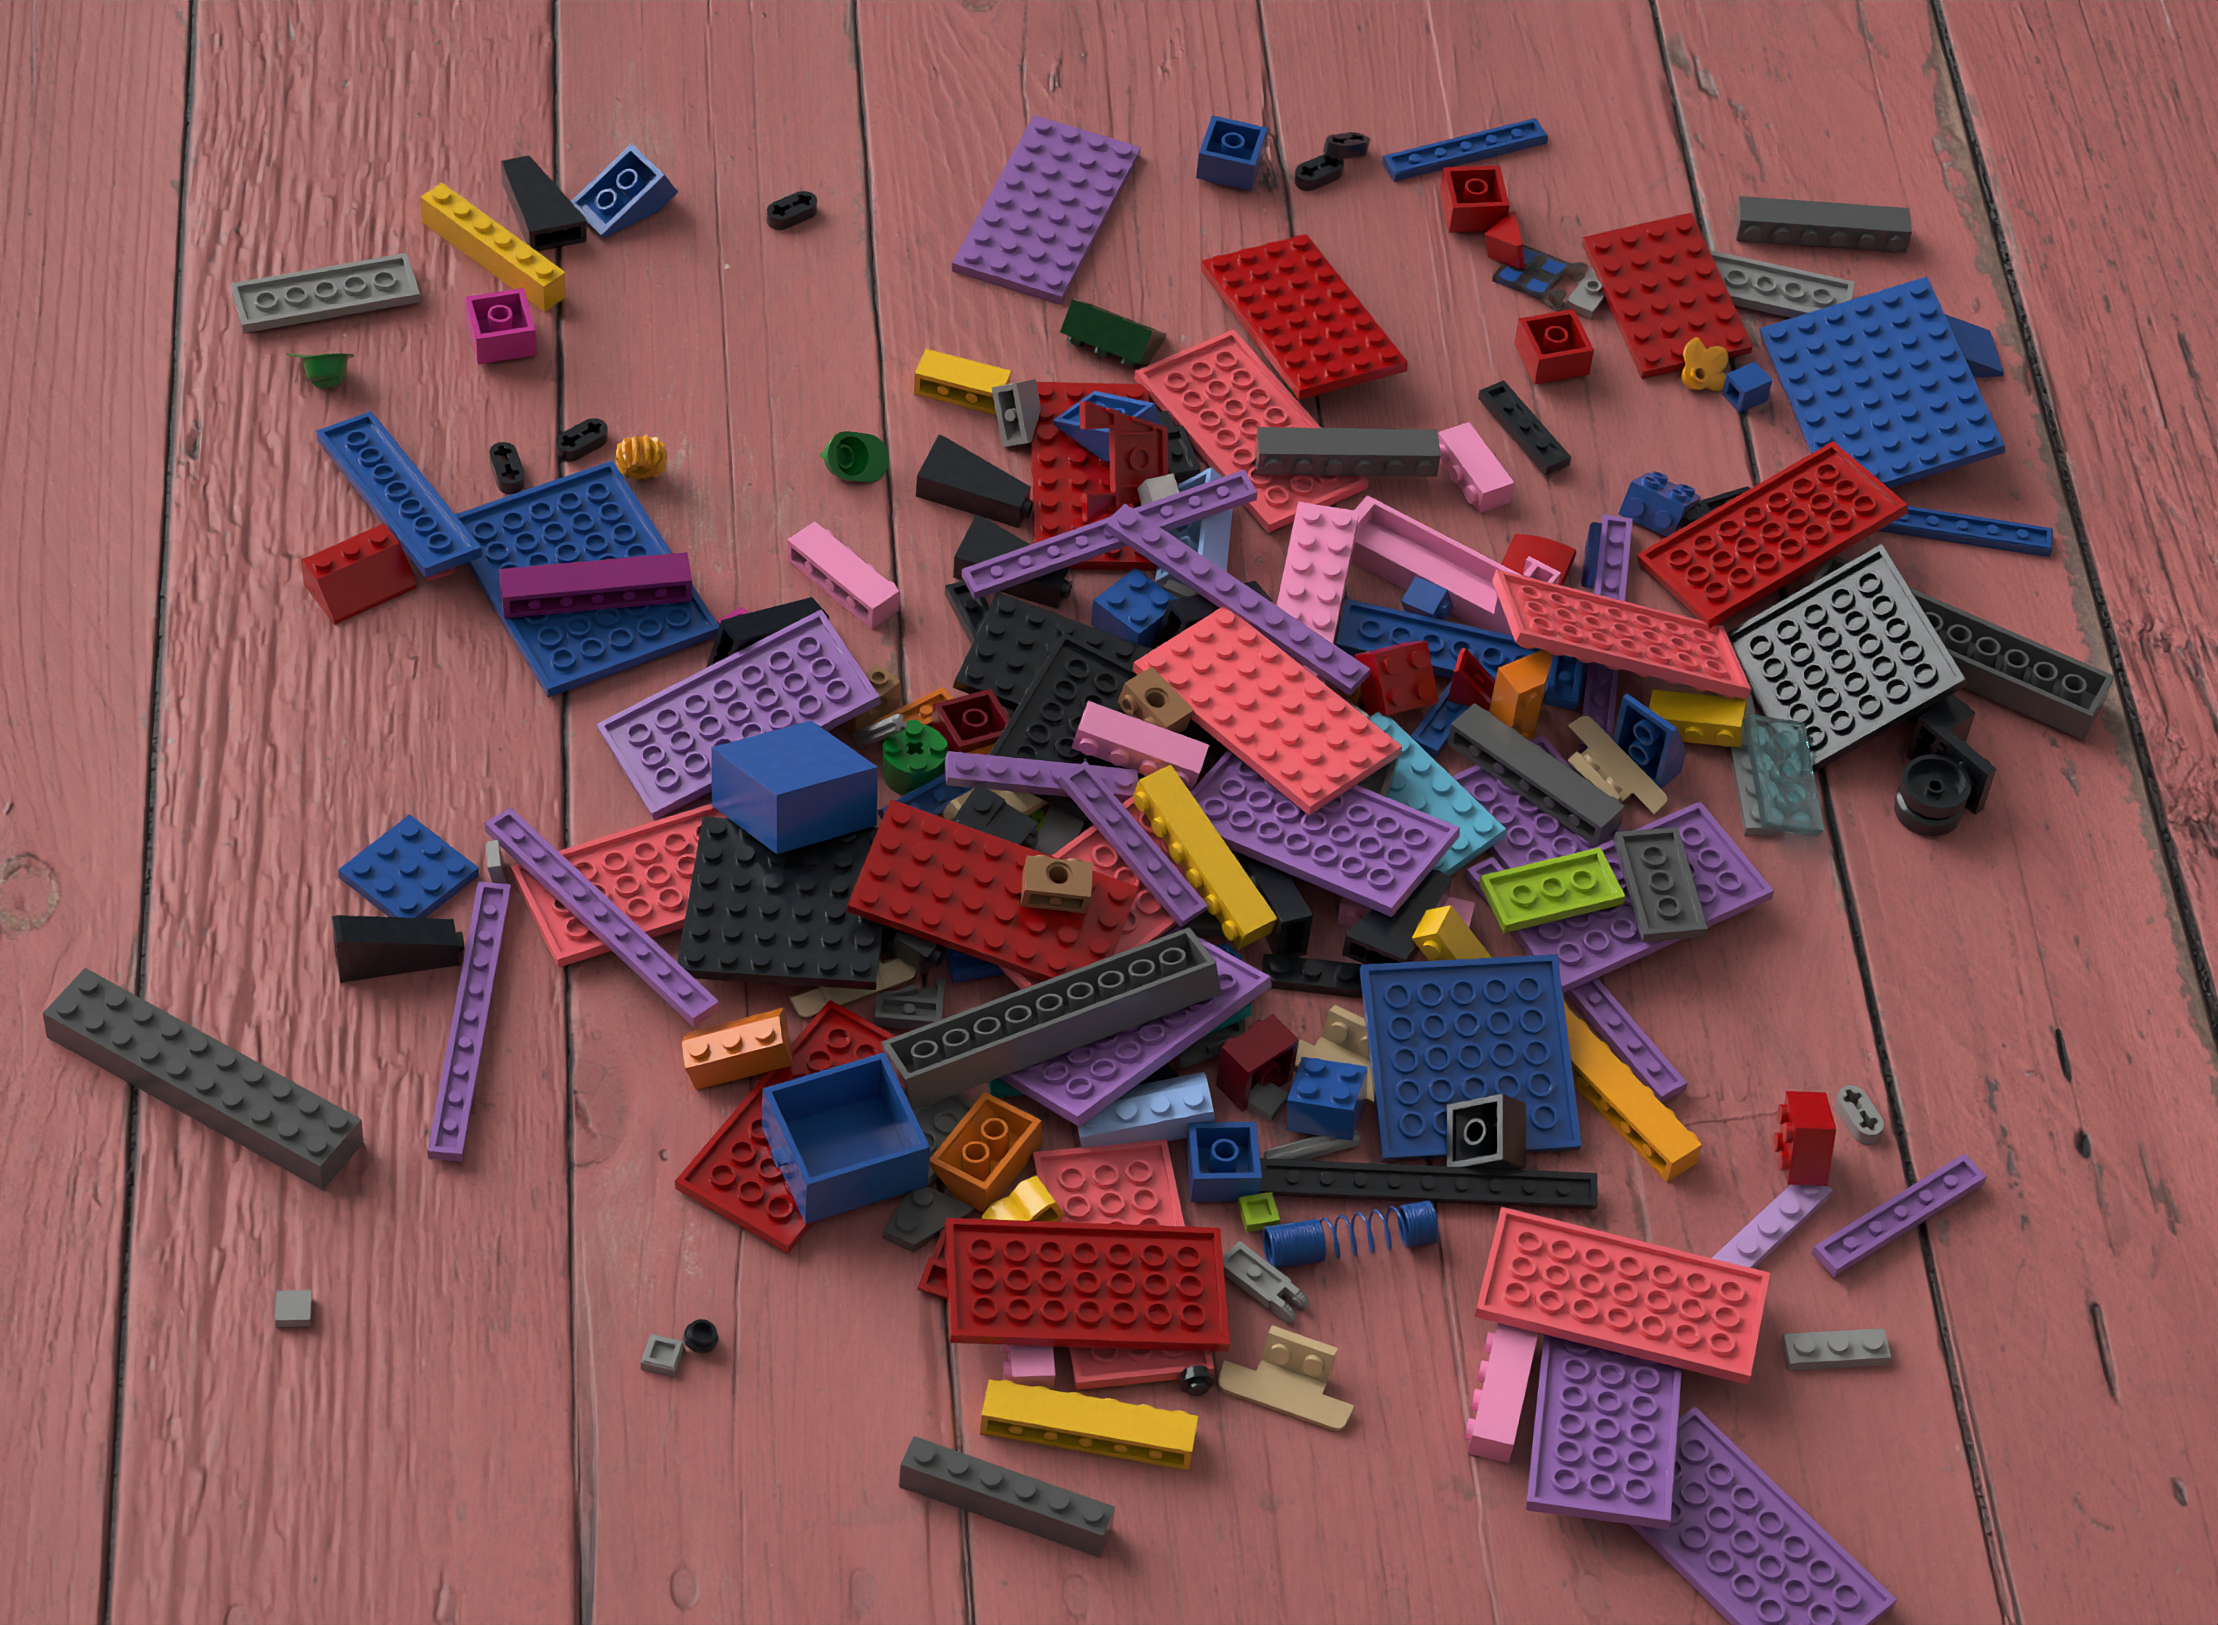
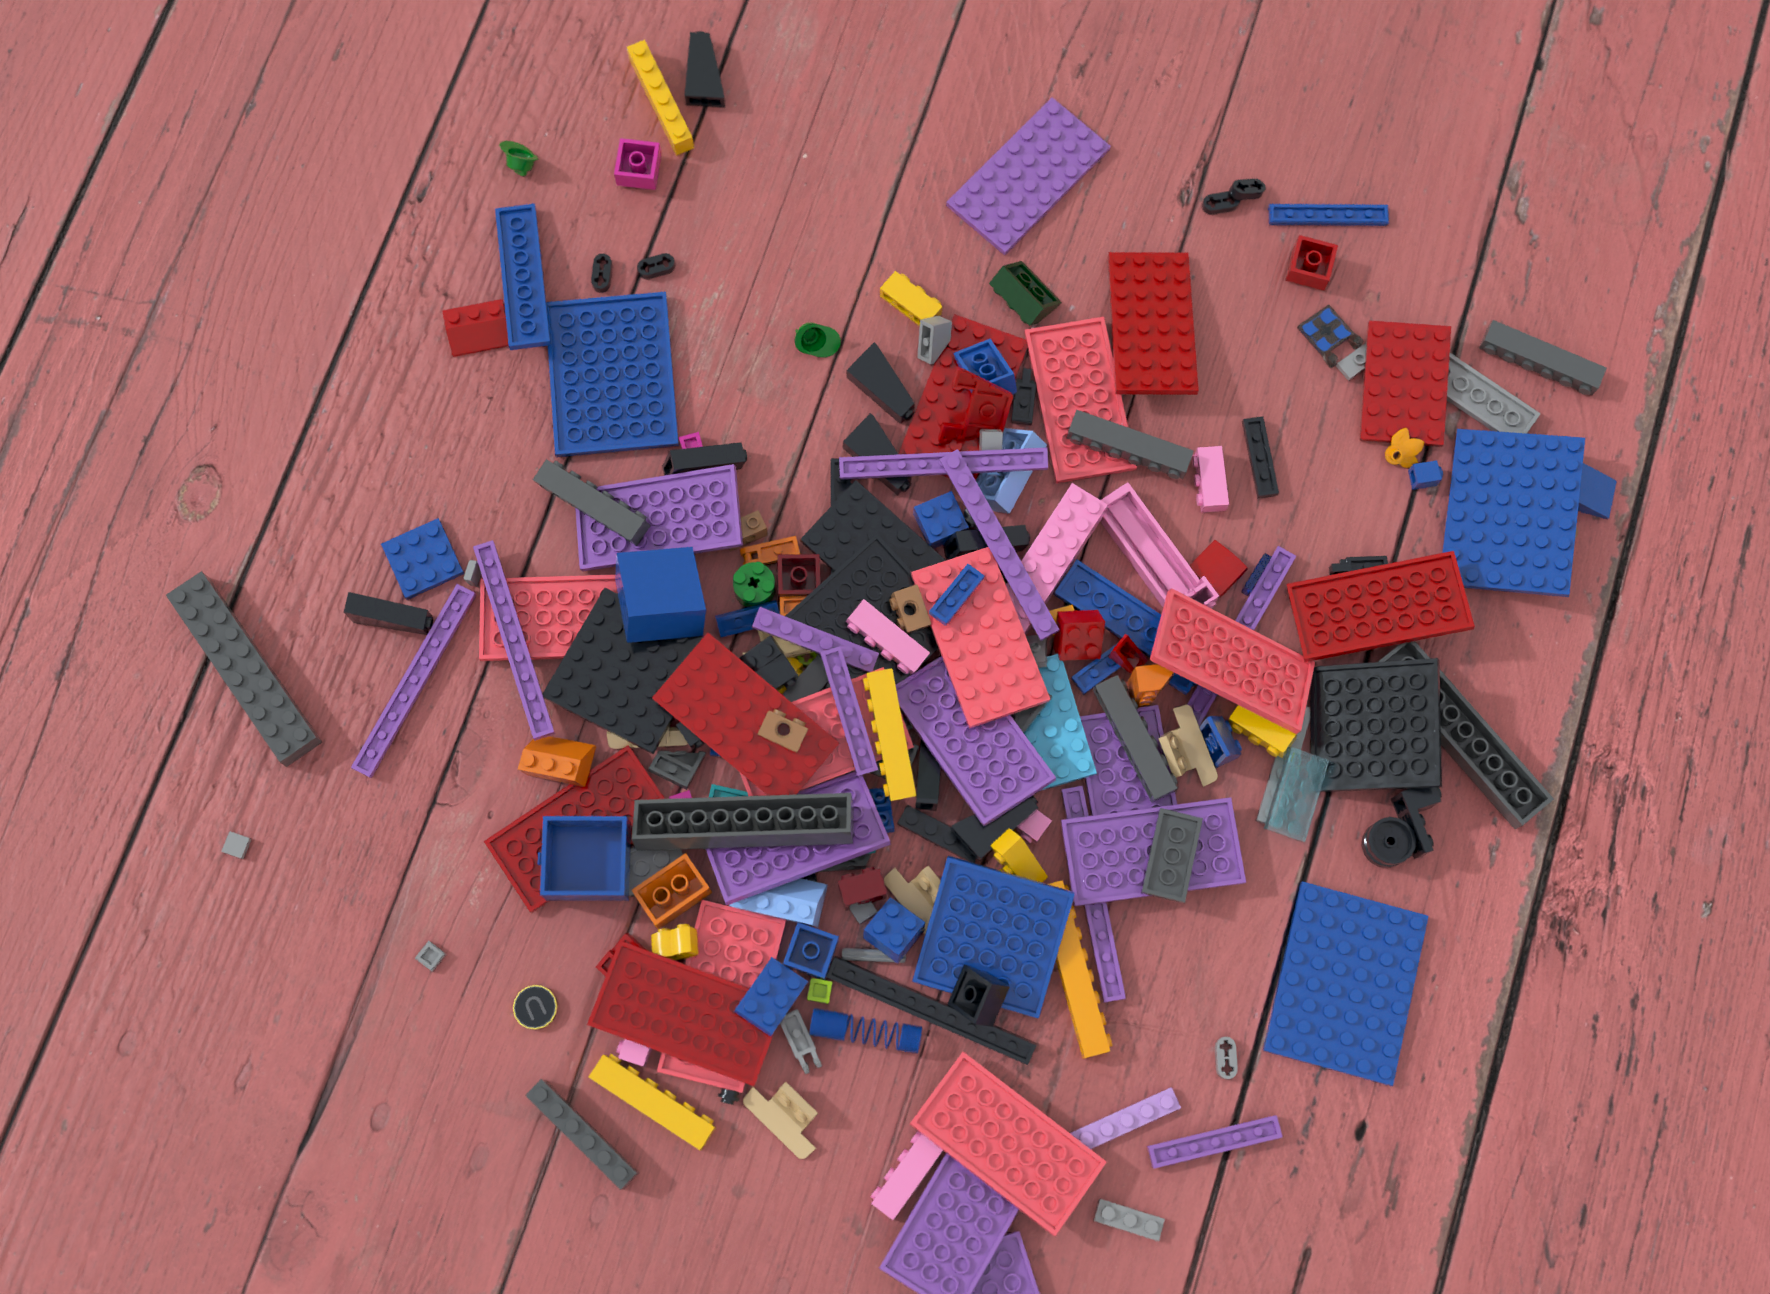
camera: 25 degrees right, 25 degrees up
(325, 293) = (544, 99): light grey plate -> none
(595, 585) = (611, 389): magenta brick -> none
(624, 193) = (760, 80): blue slope -> none
(632, 720) = (592, 502): none -> dark grey brick
(641, 457) = (682, 297): light orange gear -> none
(701, 1336) = (456, 953): black plate -> none
(791, 210) = (863, 125): black beam -> none
(843, 575) = (772, 428): bright pink brick -> none
(853, 1367) = (535, 1007): none -> black tile
(879, 730) = (736, 562): light grey axle -> none
(923, 1217) = (621, 918): dark grey wing -> none
(1198, 1223) = (771, 996): none -> blue plate
(1212, 661) = (956, 594): none -> blue plate
(1231, 153) = (1166, 172): blue brick -> none
(1427, 600) = (1130, 577): blue brick -> none
(1505, 242) = (1317, 303): red slope -> none
(1552, 890) = (1100, 835): lime plate -> none
(1554, 346) = (1308, 401): red brick -> none
(1658, 502) = (1322, 547): blue bracket -> none
(1805, 1138) = (1175, 1074): red brick -> none
(1968, 980) = (1346, 983): none -> blue plate
(1974, 531) = (1521, 637): blue tile -> none

